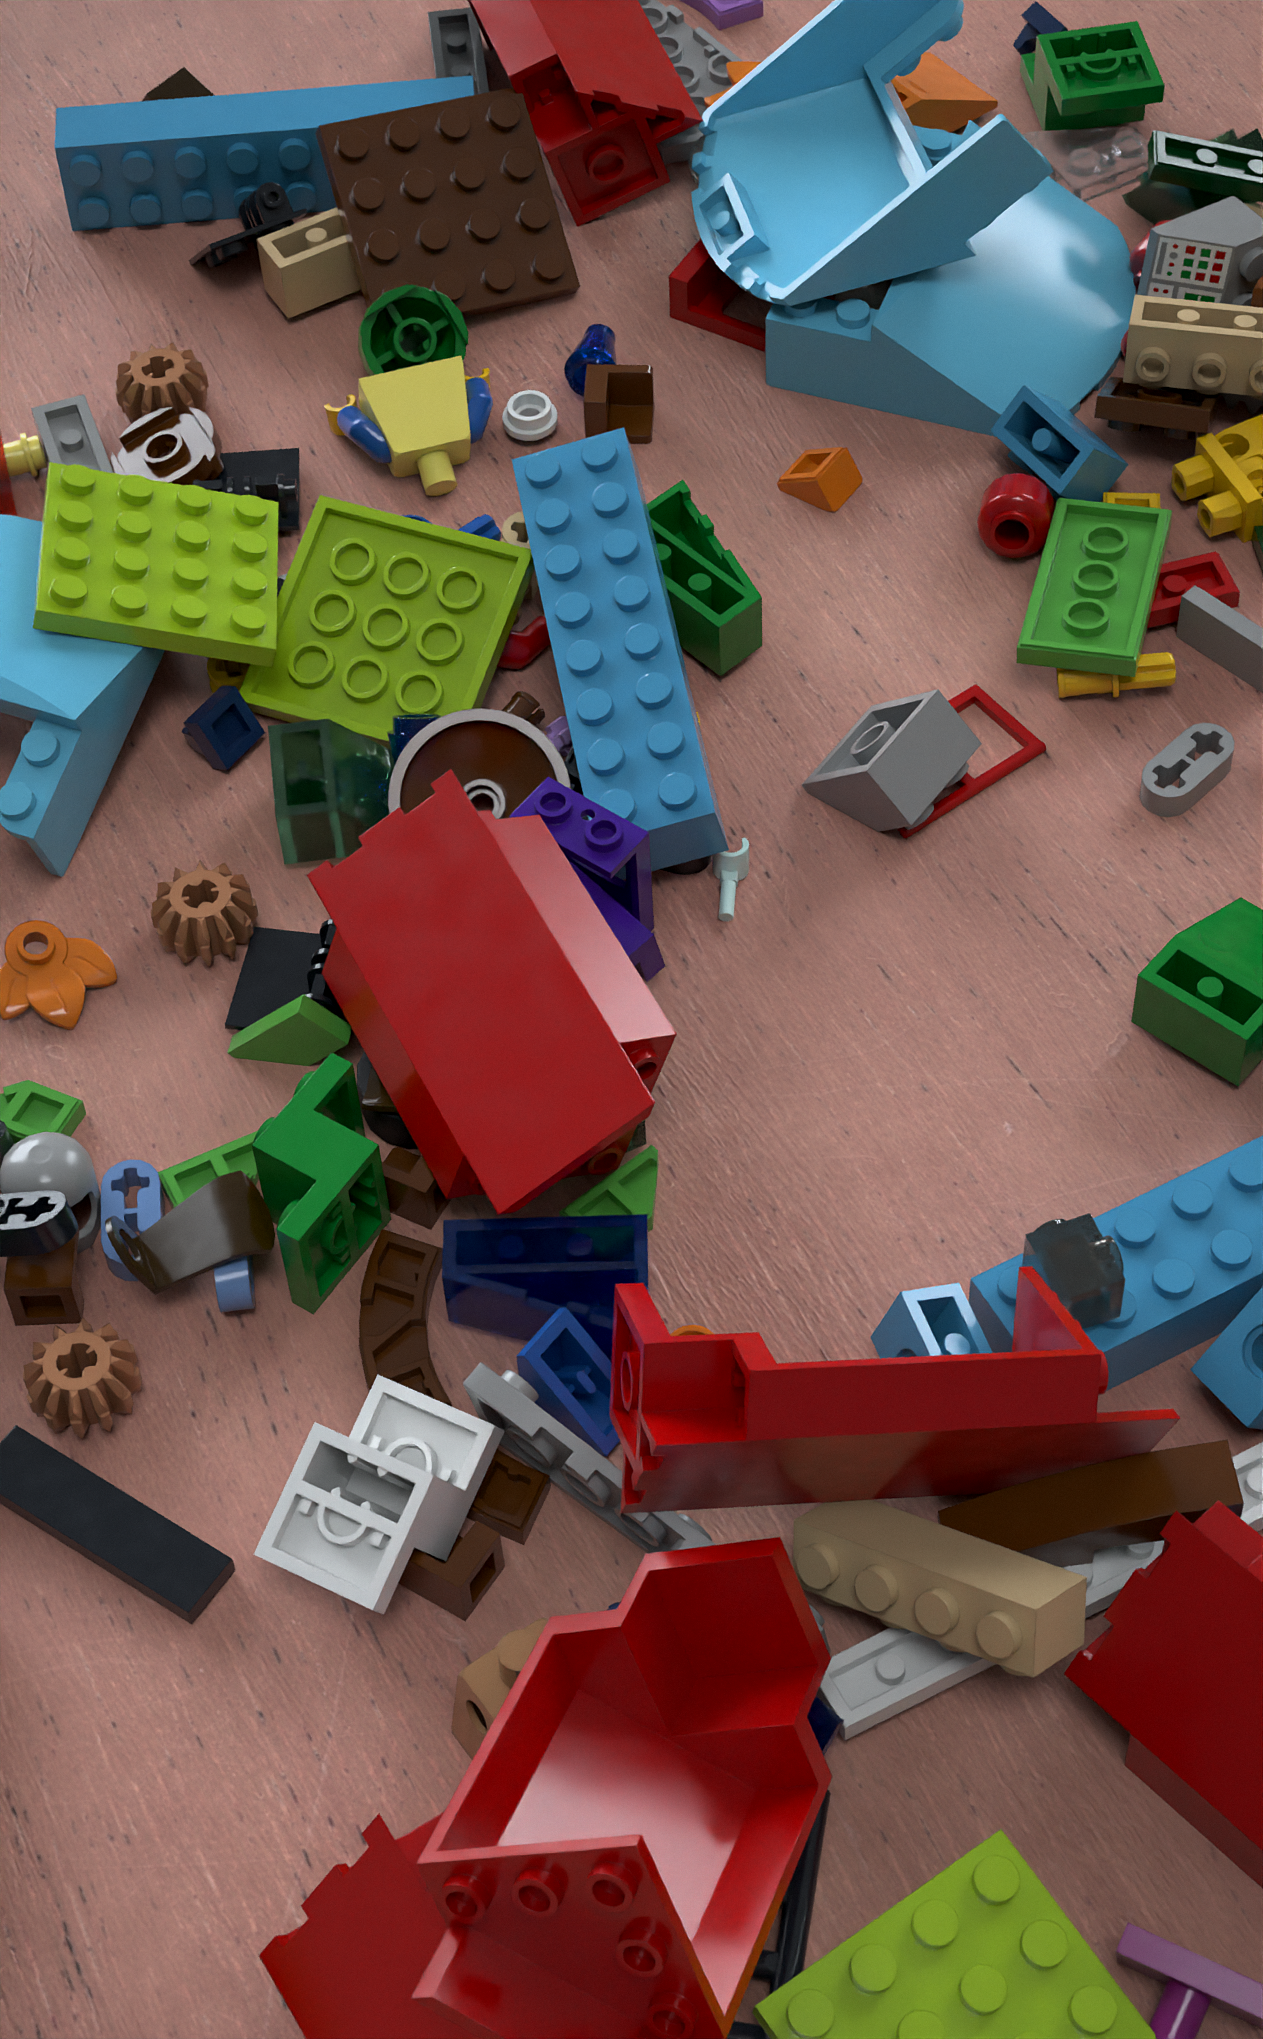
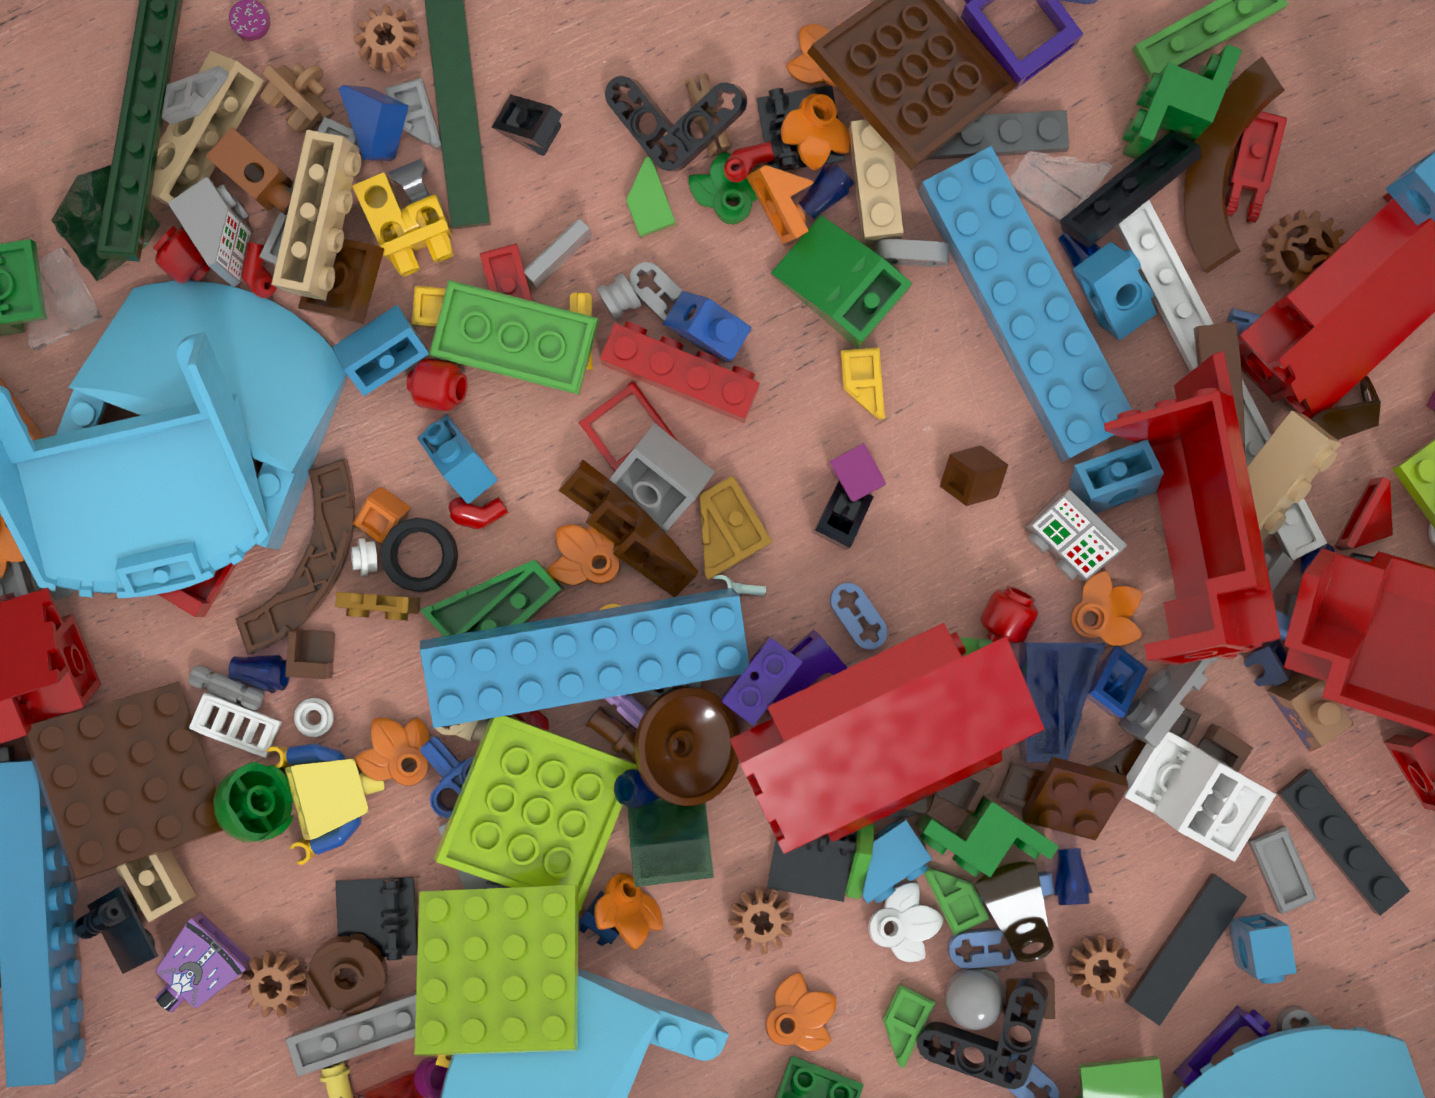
camera: 90 degrees left, 35 degrees up
(94, 1607) = (1263, 947): none -> dark azure brick
(184, 1112) = (911, 923): none -> white plate
(199, 312) = (199, 964): none -> medium lavender torso
(225, 747) = (630, 912): none -> orange plate
(233, 1681) = (1282, 869): none -> light grey tile
(240, 1335) = (1071, 880): none -> clear blue cone
(270, 1061) = (894, 857): none -> dark azure slope
(276, 1787) = (1343, 842): none -> black plate
(377, 1313) = (1074, 798): none -> reddish brown plate
(475, 488) = (393, 746): none -> orange plate
(530, 310) = (215, 731): none -> white slope
(583, 313) = (226, 688): none -> light grey axle
(690, 453) = (394, 606): none -> pearl gold wing
(694, 1228) = (1009, 614): none -> red head
(700, 1038) = (866, 610): none -> medium blue beam
(753, 420) = (319, 566): none -> reddish brown tile
(758, 454) = (364, 557): none -> white plate
(765, 480) = (390, 550): none -> black tyre
(774, 696) = (579, 552): none -> orange plate
(806, 738) = (637, 536): none -> reddish brown slope
(824, 570) = (475, 516): none -> red arm
(826, 859) = (729, 527): none -> pearl gold wing
(838, 1300) = (1073, 536): none -> slope
(847, 994) = (842, 518): none -> black slope
(898, 1815) = (1370, 518): none -> red slope
(906, 539) = (457, 459): none -> dark azure slope
(928, 1010) = (857, 472): none -> magenta panel
(932, 1176) = (973, 475): none -> reddish brown panel
(1064, 785) = (680, 373): none -> red brick
(1073, 1735) = (1352, 418): none -> dark brown piece
(1079, 1267) = (1090, 399): clear smoke brick -> none
(1082, 1032) = (864, 379): none -> yellow tile
(1141, 795) = (709, 328): none -> blue torso
(1172, 707) = (618, 296): none -> light grey wheel

